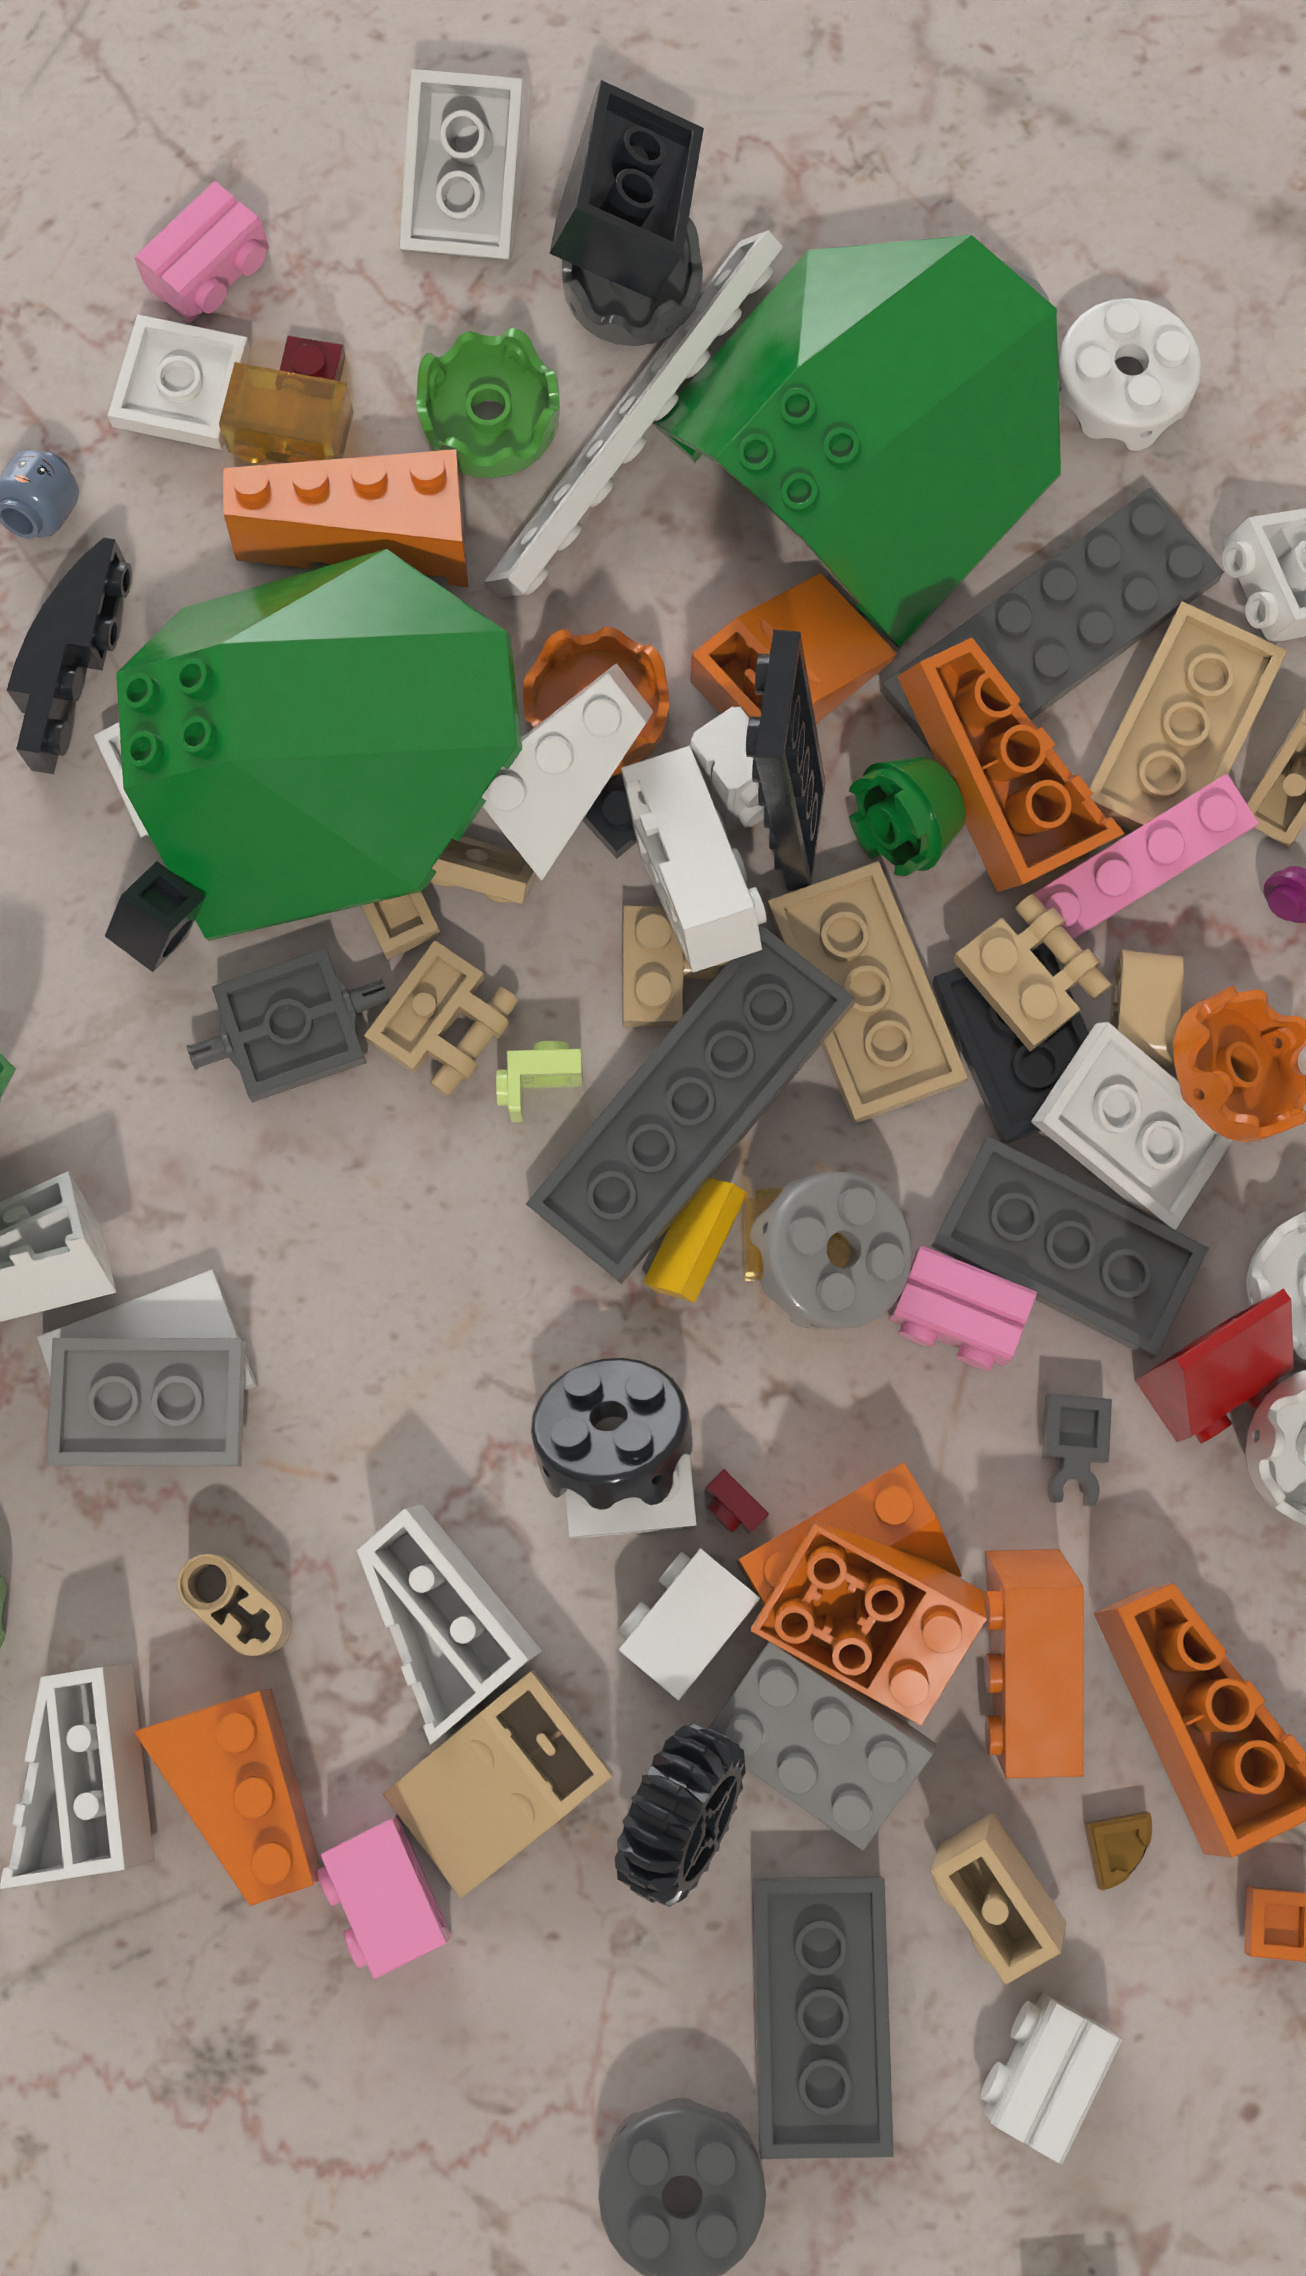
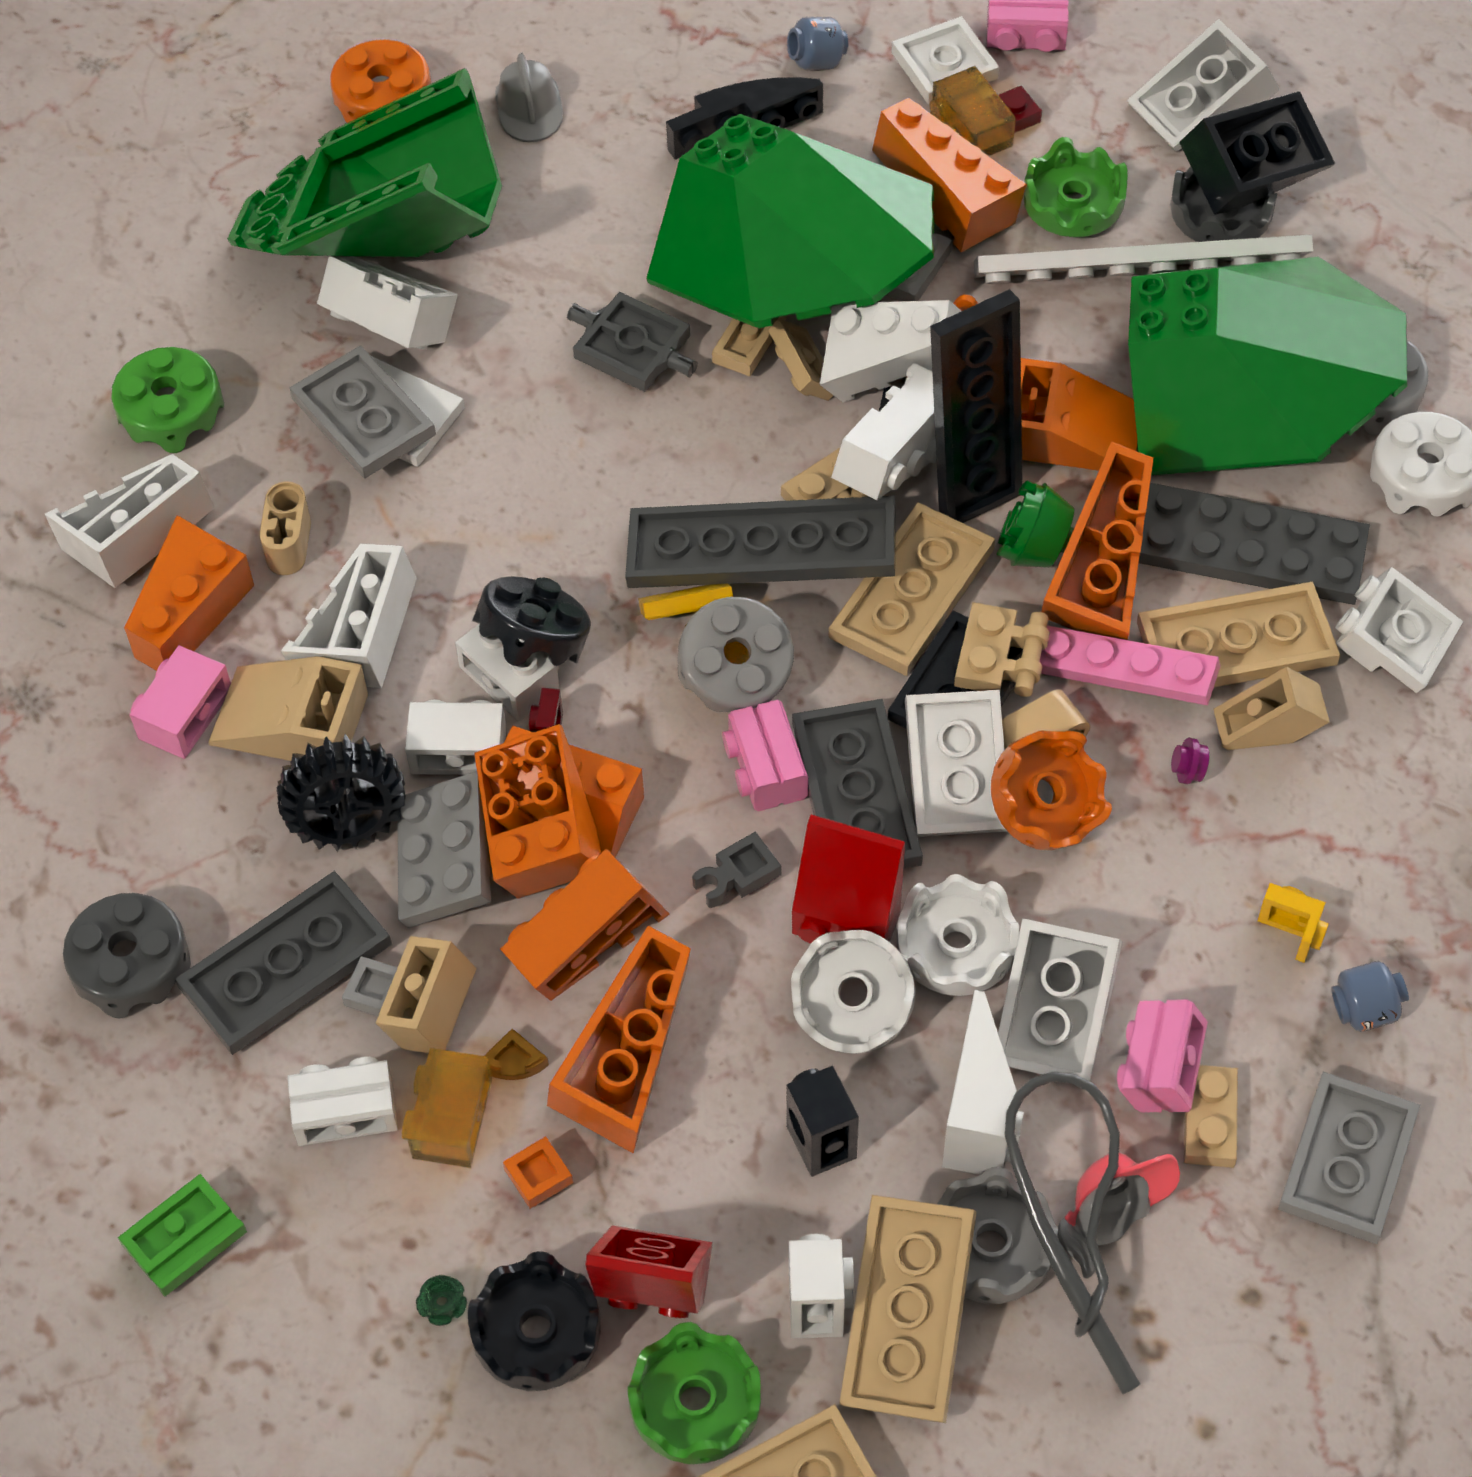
camera: 55 degrees right, 20 degrees down
(154, 916) = (632, 238): black brick -> none
(425, 1009) = (701, 394): tan plate -> none
(545, 1066) = (710, 461): yellowish green bracket -> none
(931, 1938) = (368, 986): none -> light grey plate
(1142, 1965) = (448, 1107): none -> clear yellow brick

